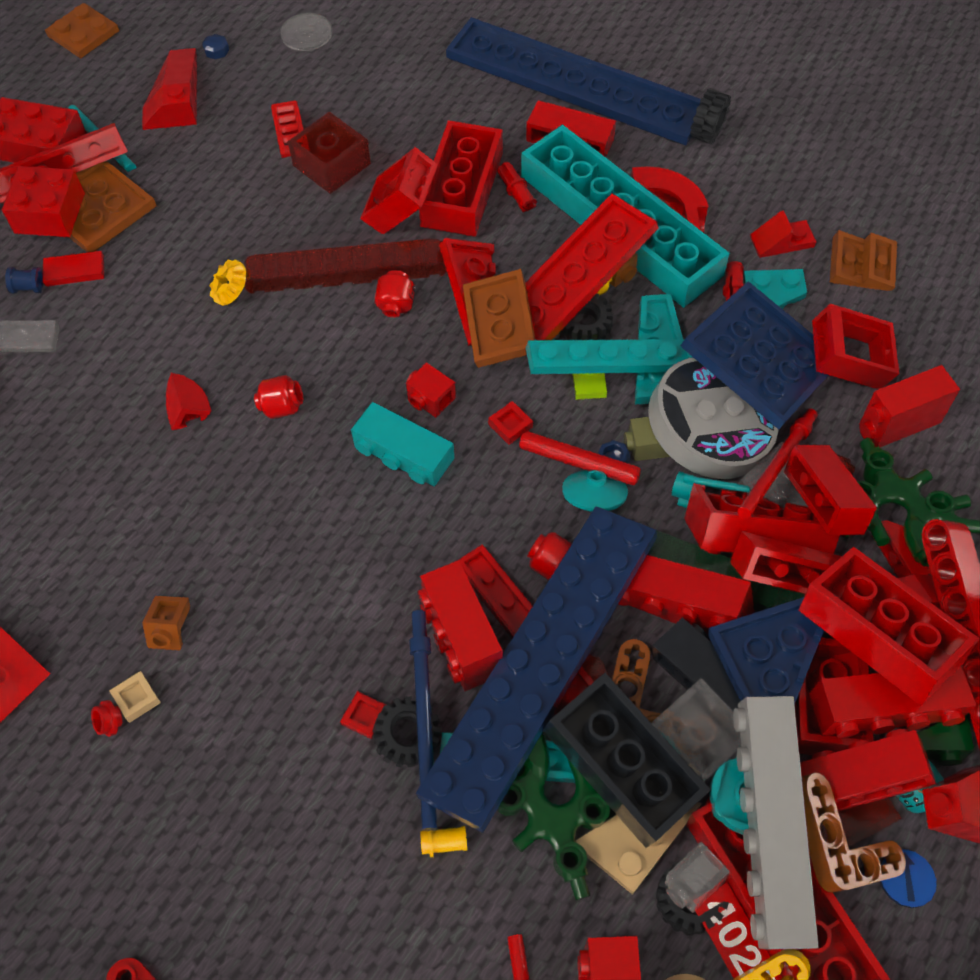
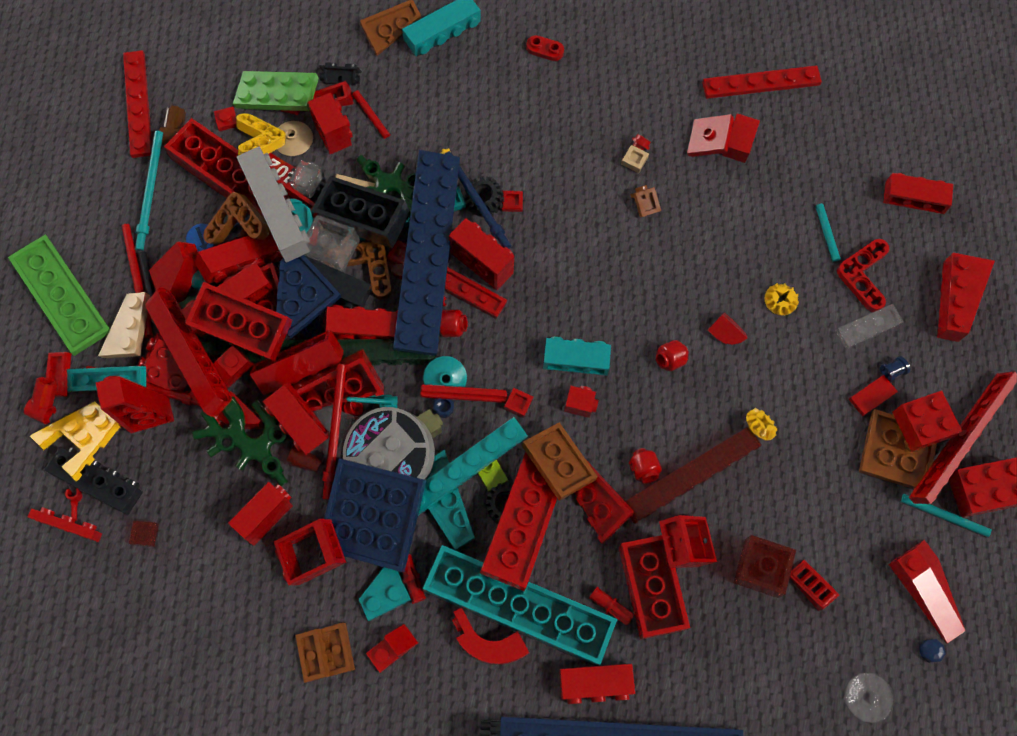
camera: 150 degrees right, 10 degrees up
(99, 415) = (781, 308): none -> yellow gear

